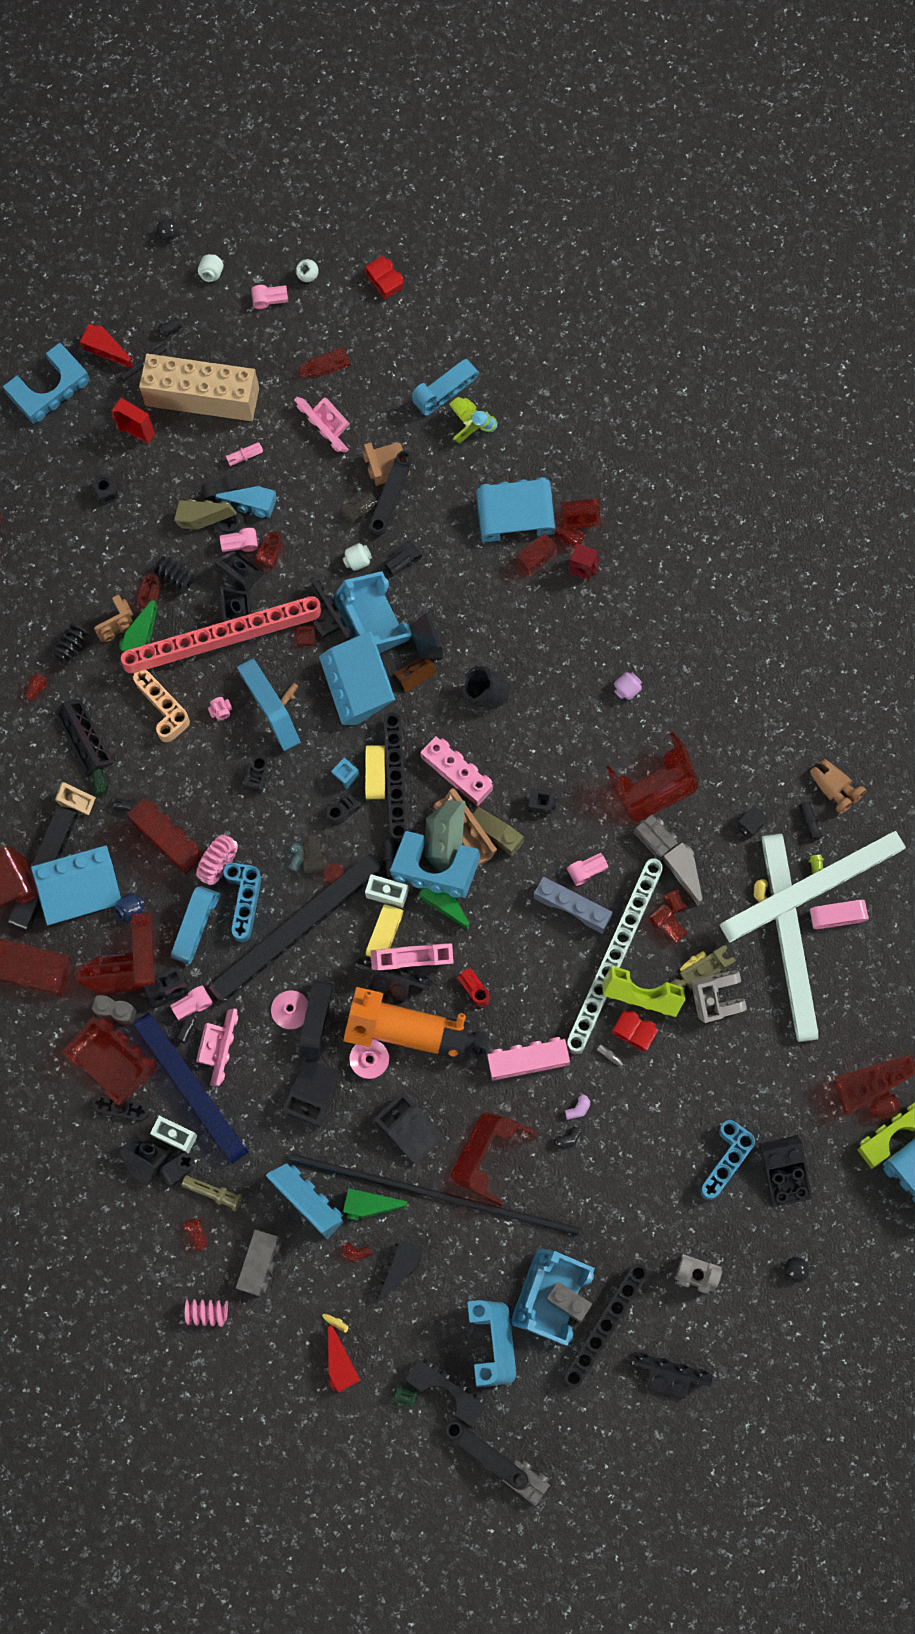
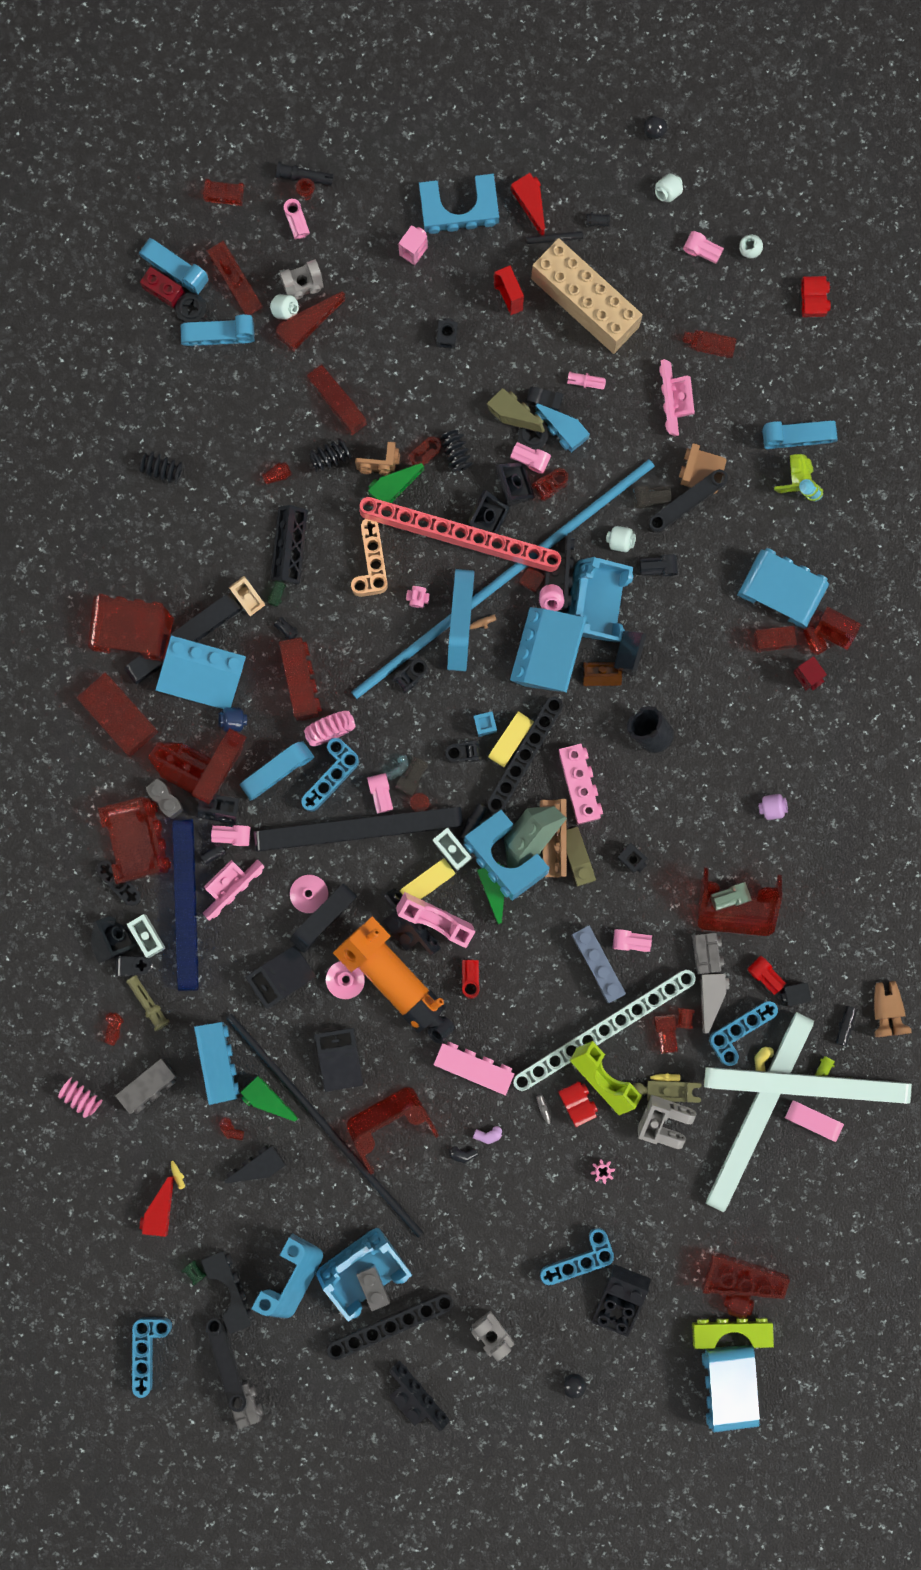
camera: 30 degrees right, 10 degrees up
(30, 436) = (413, 244): none -> bright pink brick
(49, 596) = (337, 399): none -> clear red slope
(279, 655) = (503, 578): none -> dark azure piece
(292, 883) = (380, 789): none -> bright pink piece
(331, 636) = (551, 597): none -> bright pink head
(413, 1499) = (145, 1357): none -> dark azure beam
(646, 775) = (735, 895): none -> sand green piece
(698, 1069) = (608, 1170): none -> bright pink gear
(712, 822) = (763, 972): none -> red piece
(727, 876) = (744, 1027): none -> dark azure beam

